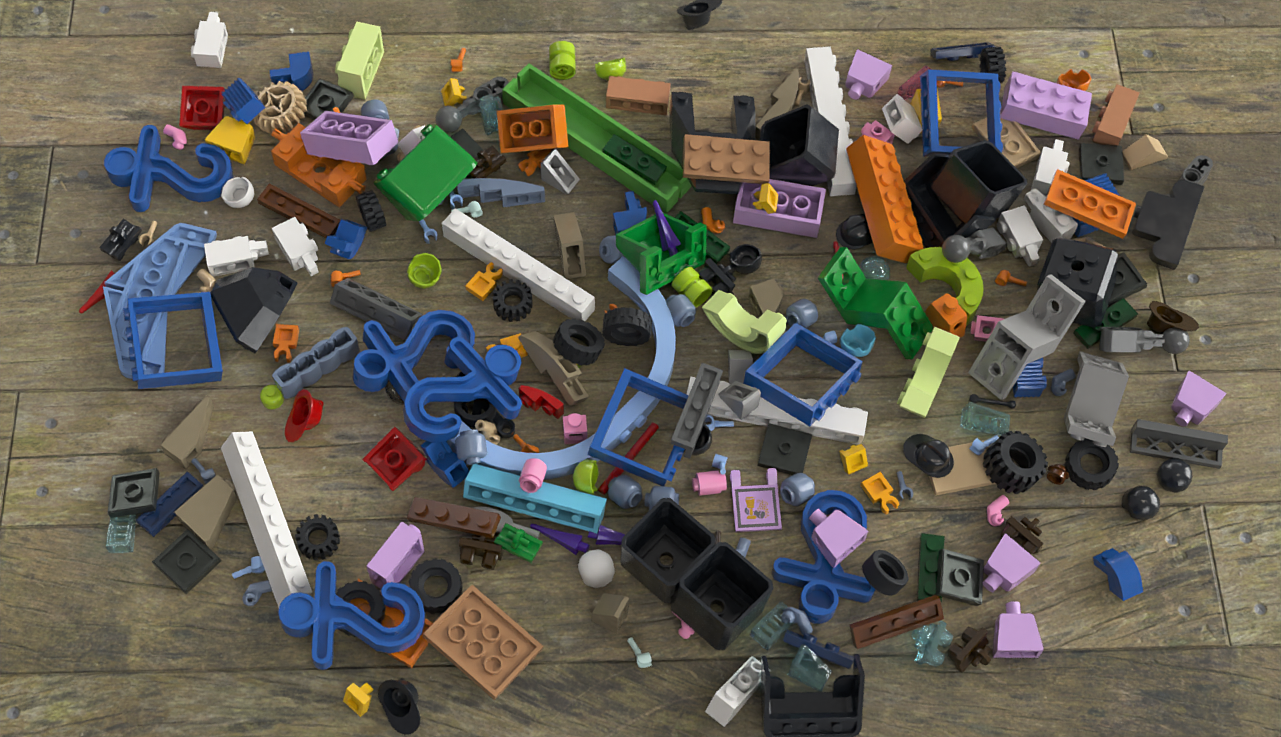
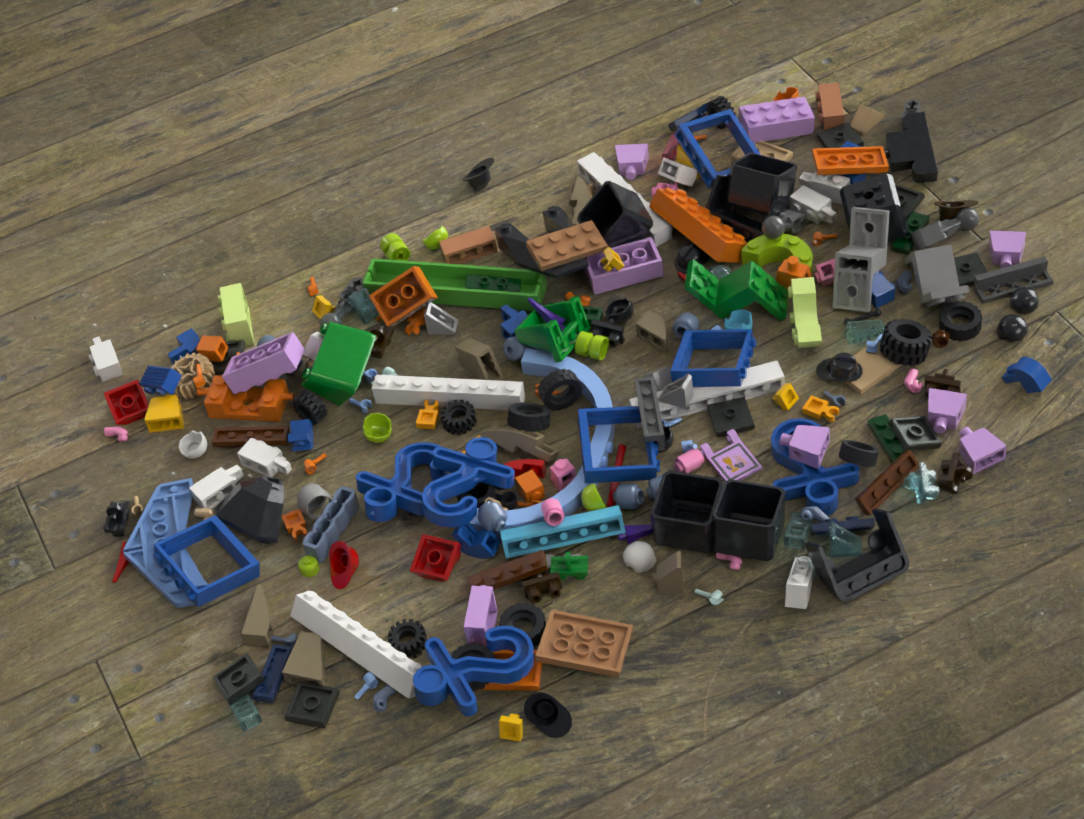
camera: 15 degrees left, 15 degrees down
(142, 169) = (104, 463): blue piece -> none
(280, 122) = (199, 380): none -> orange hand
(313, 320) = (311, 498): none -> light grey helmet
(315, 88) = (212, 347): none -> orange brick
(374, 306) = (345, 471): dark grey fence -> none
(509, 191) = (405, 350): sand blue slope -> none
(534, 425) = (530, 486): none -> orange brick
(570, 541) = (606, 549): dark purple piece -> none
(681, 310) = (594, 361): sand blue head -> none
(741, 327) = (648, 354): yellowish green brick -> none
(797, 489) = (757, 434): sand blue head -> none
(1048, 163) = (803, 155): white hinge -> none
(1139, 402) = (967, 267): none -> pearl dark grey plate

